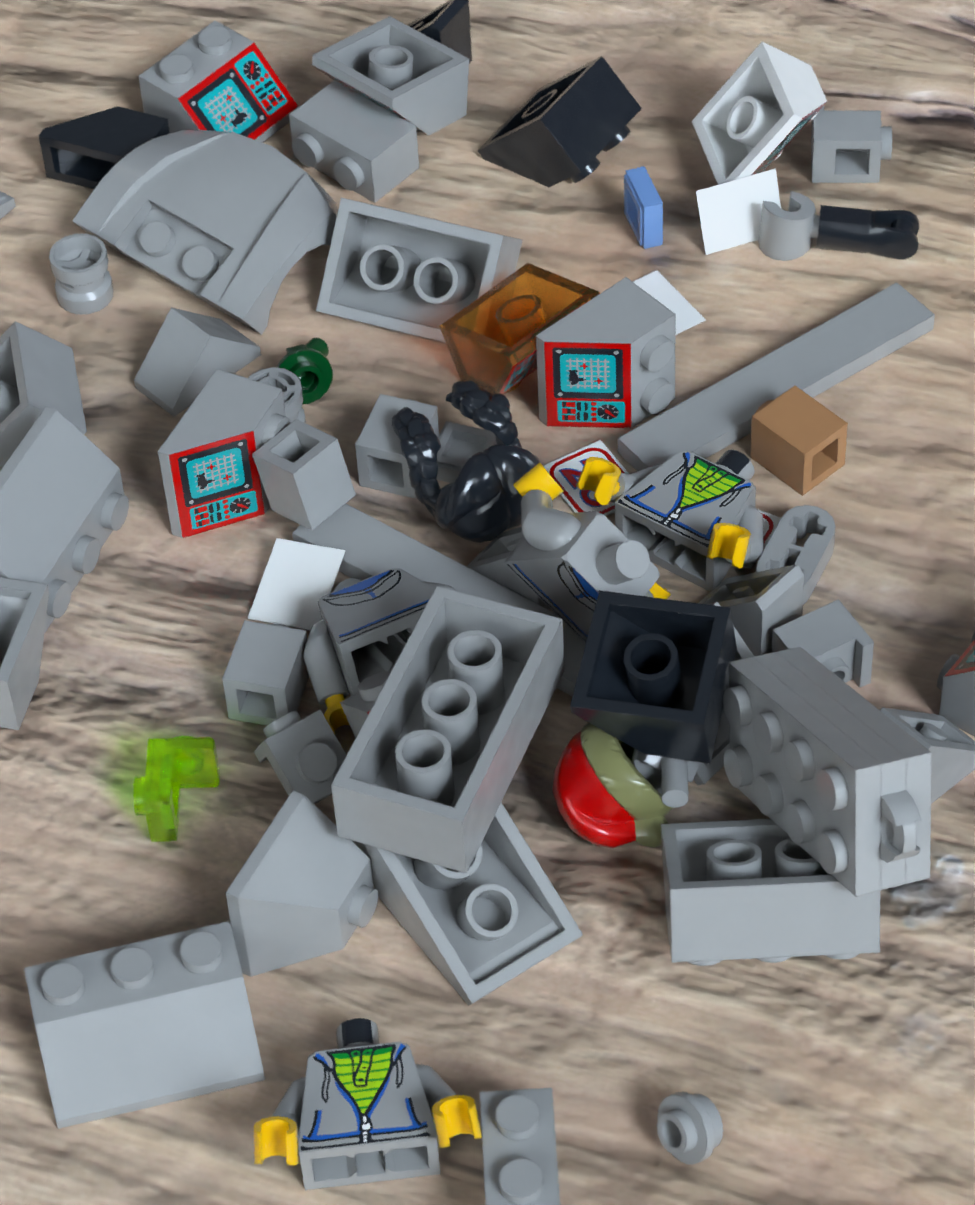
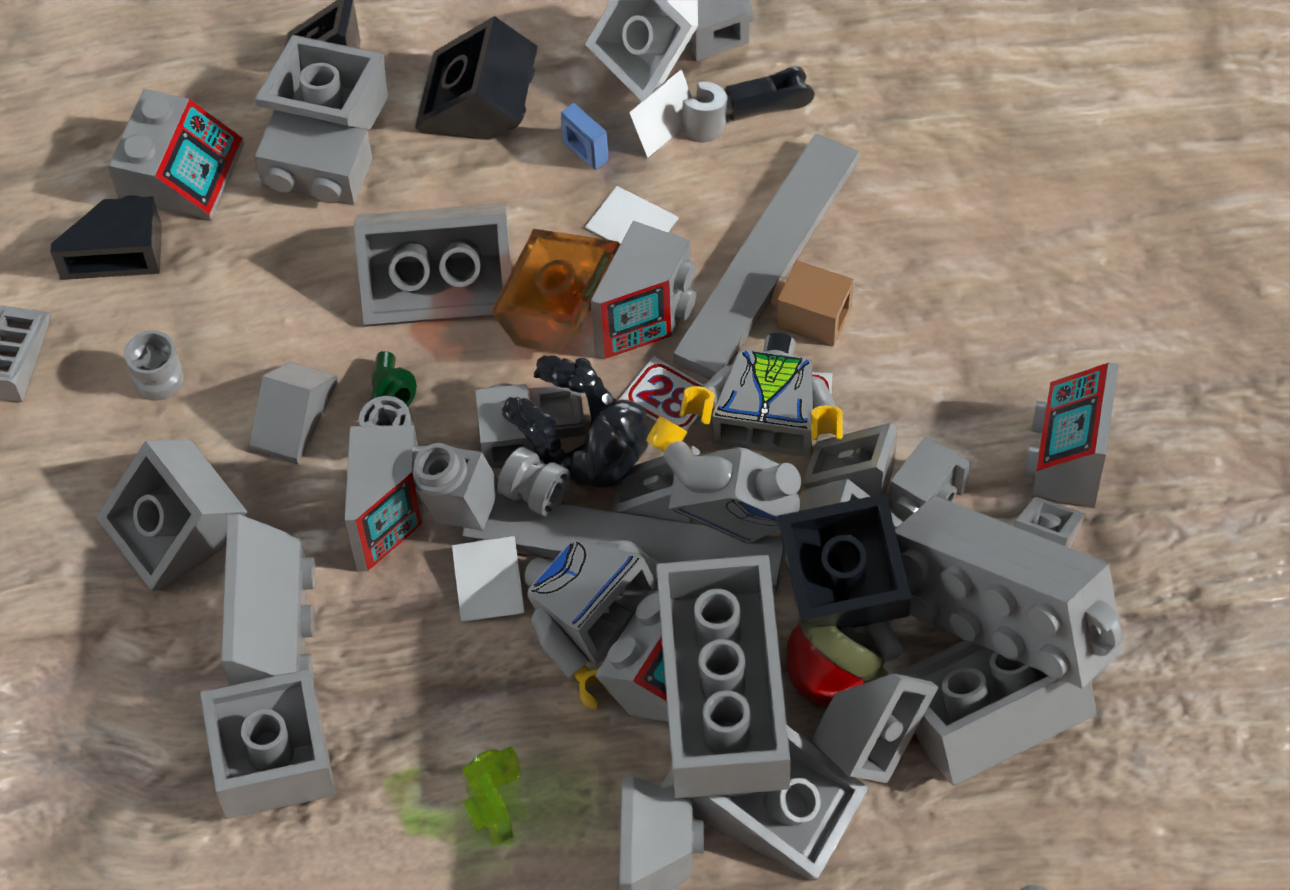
camera: 25 degrees left, 10 degrees up
(212, 217) = (243, 273): light grey piece -> none
(265, 673) = (514, 668): light grey brick -> none
(280, 435) = (433, 460): none -> light grey plate
(302, 754) = (582, 728): light grey bracket -> none
(391, 503) = (536, 483): none -> light grey wheel
(610, 857) = (873, 724): none -> light grey slope
(813, 556) = (874, 400): light grey beam -> none

